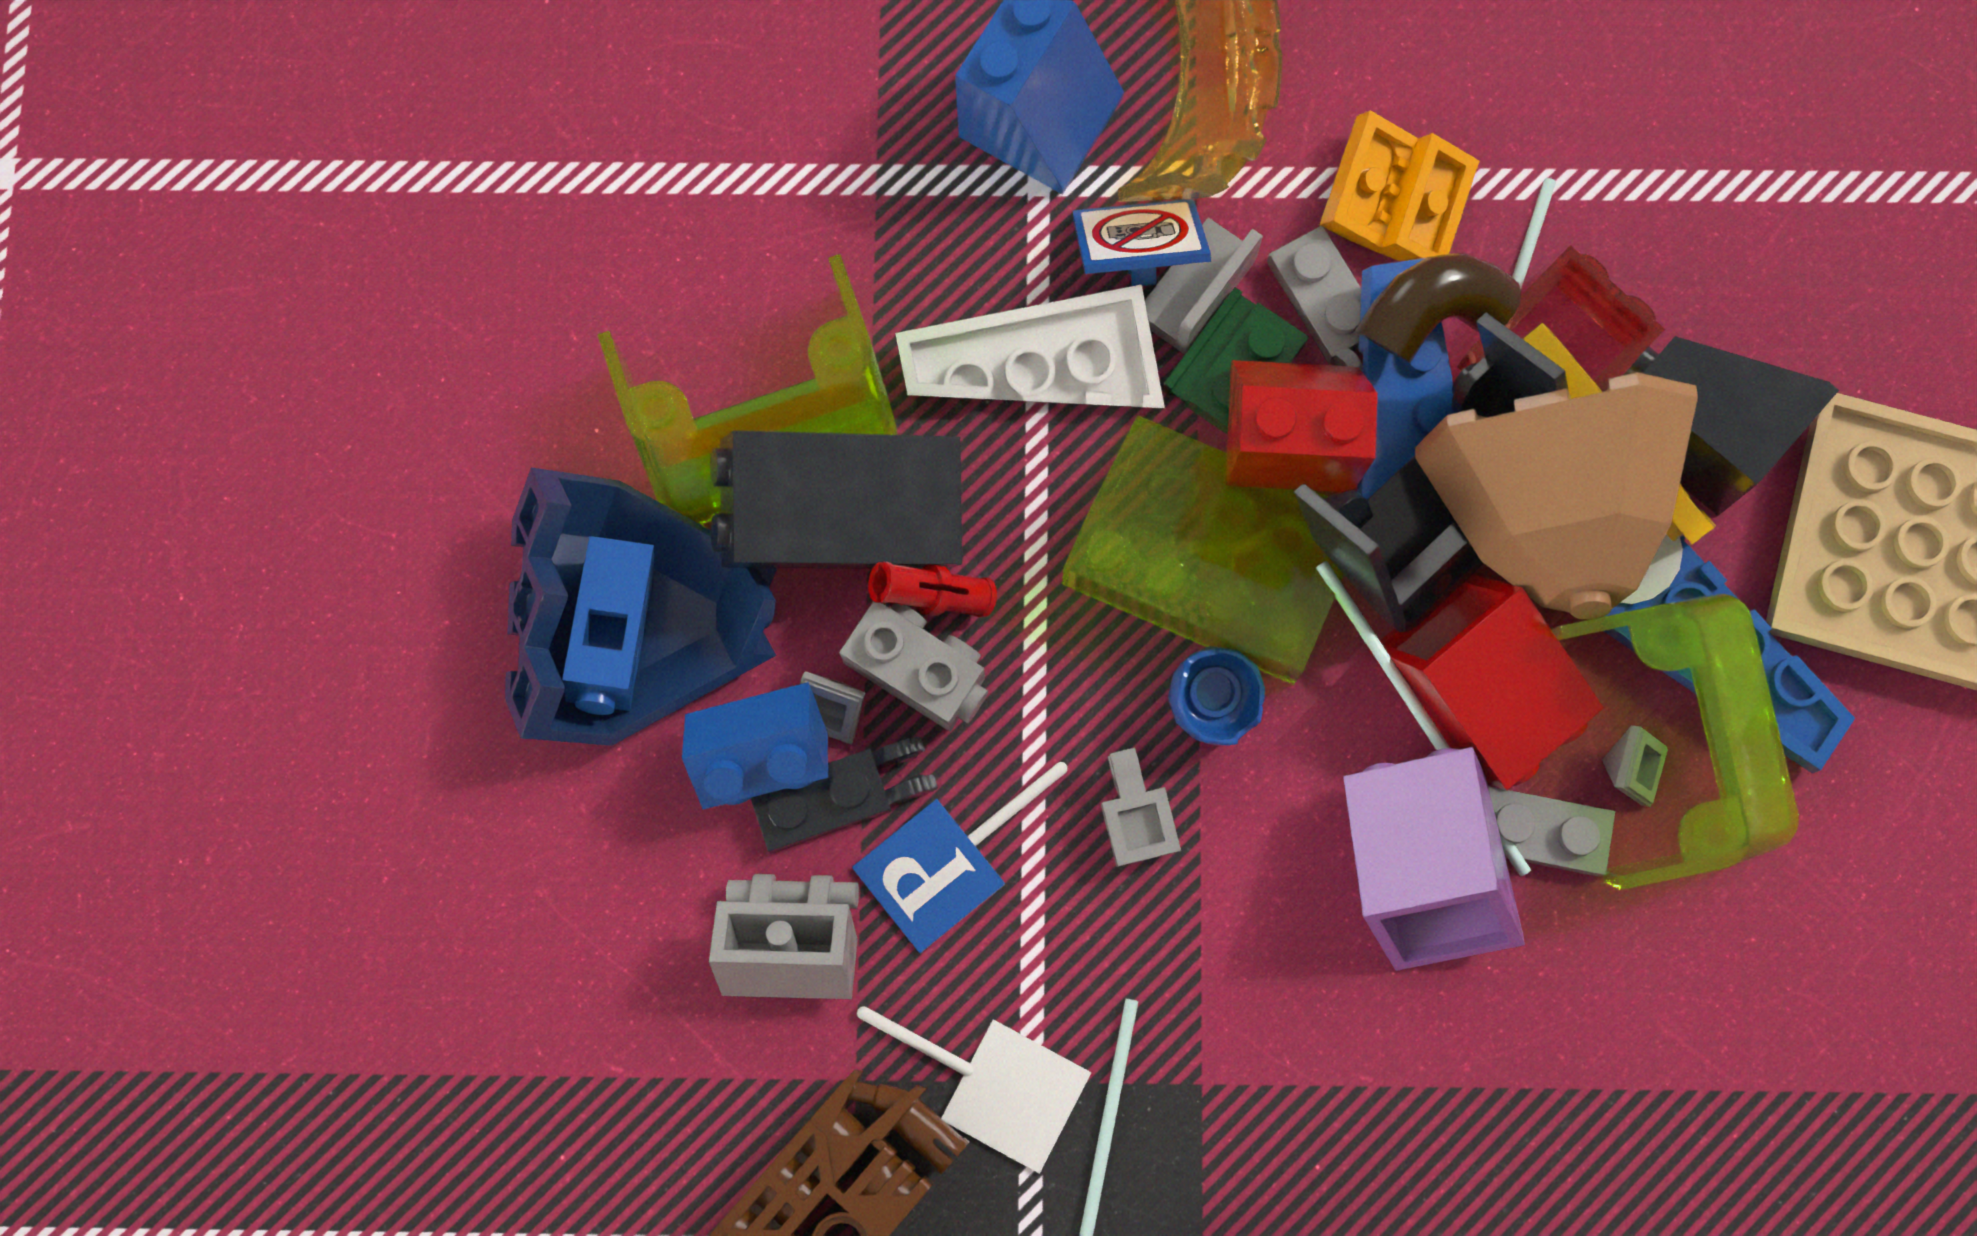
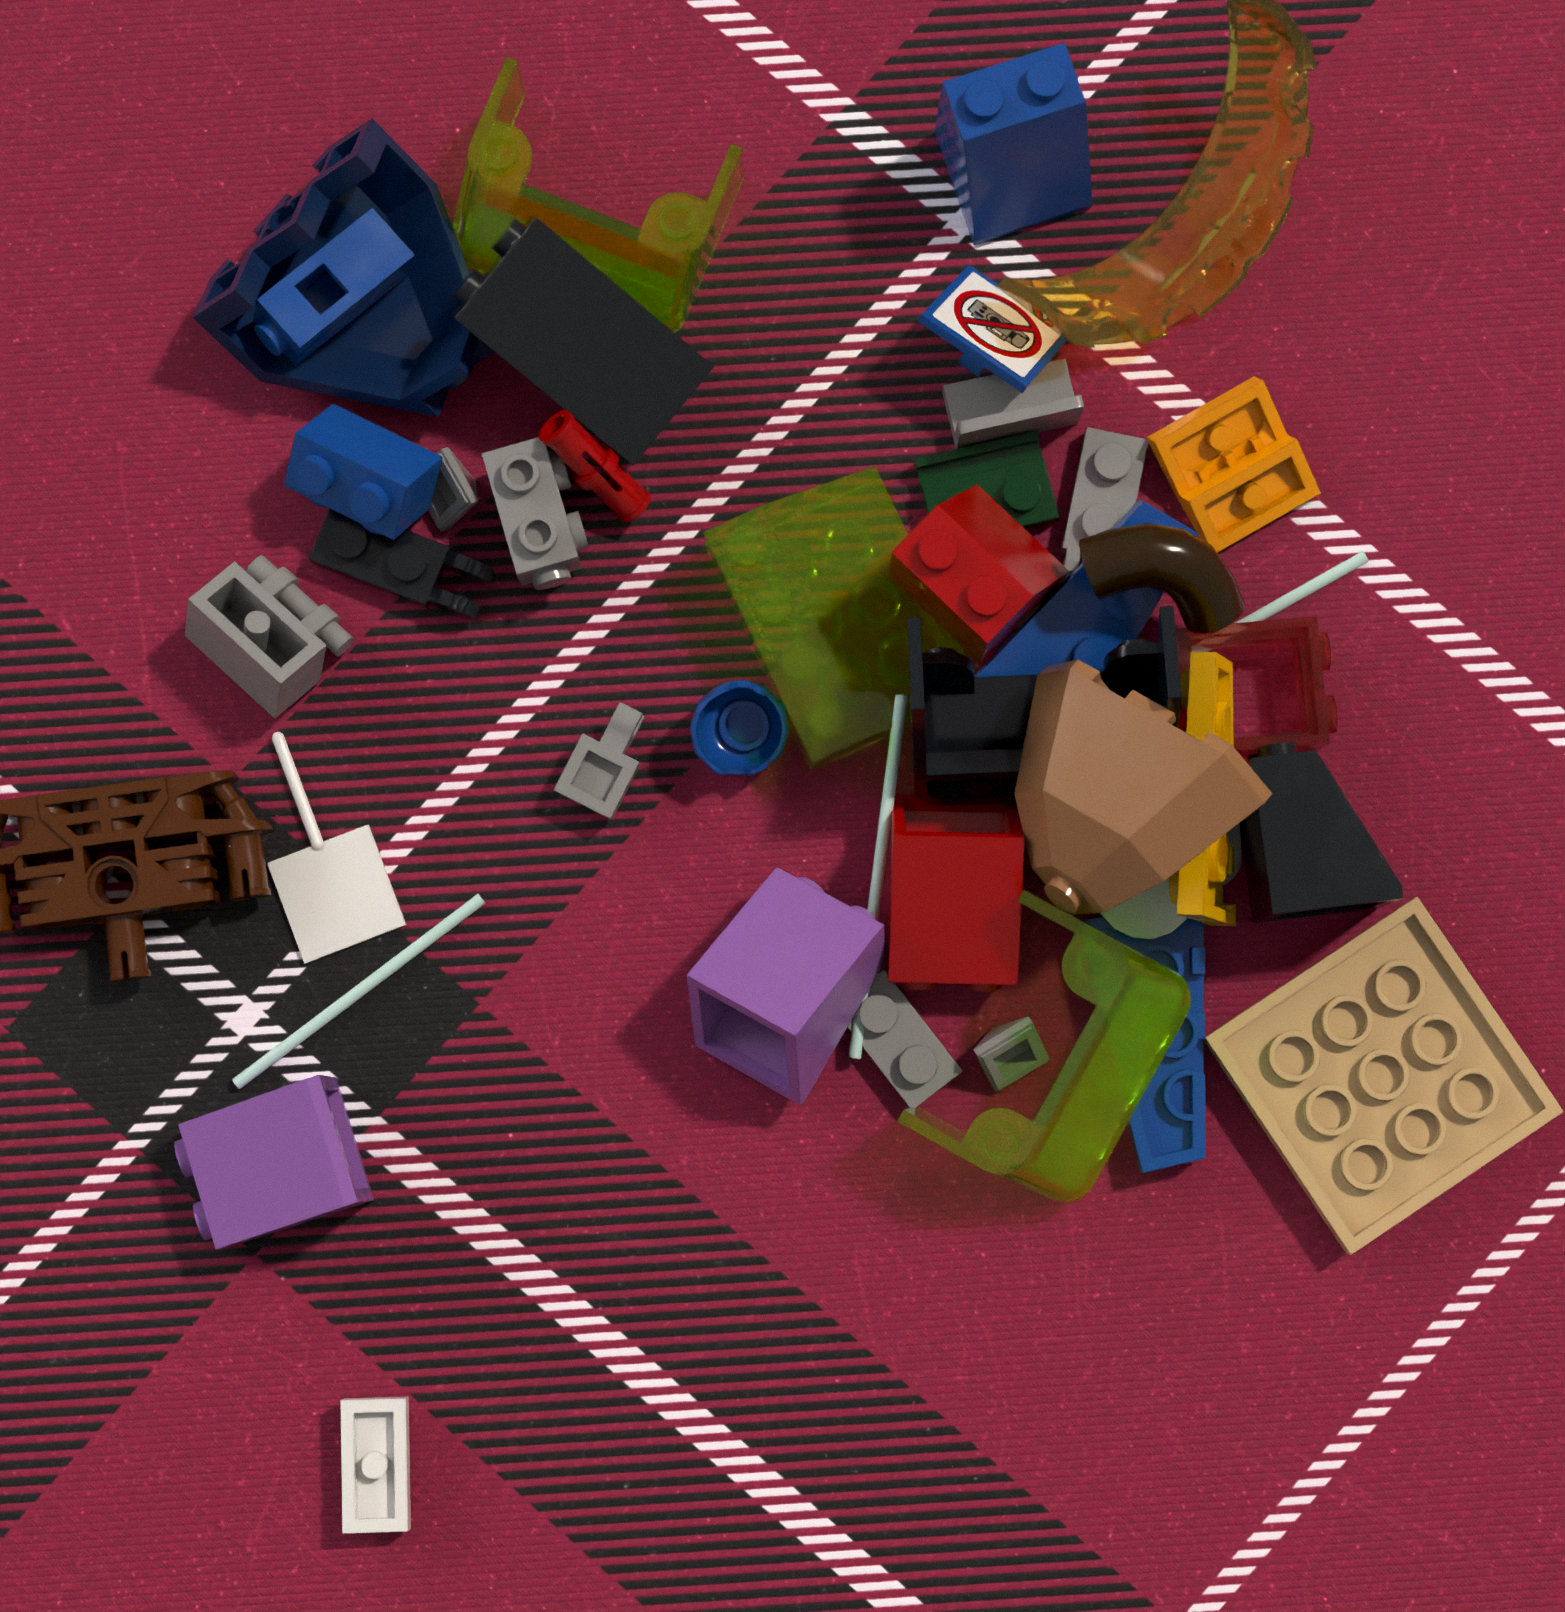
camera: 35 degrees right, 5 degrees up
(933, 872) = (419, 678): blue piece -> none
(1057, 352) = (853, 364): white wing -> none

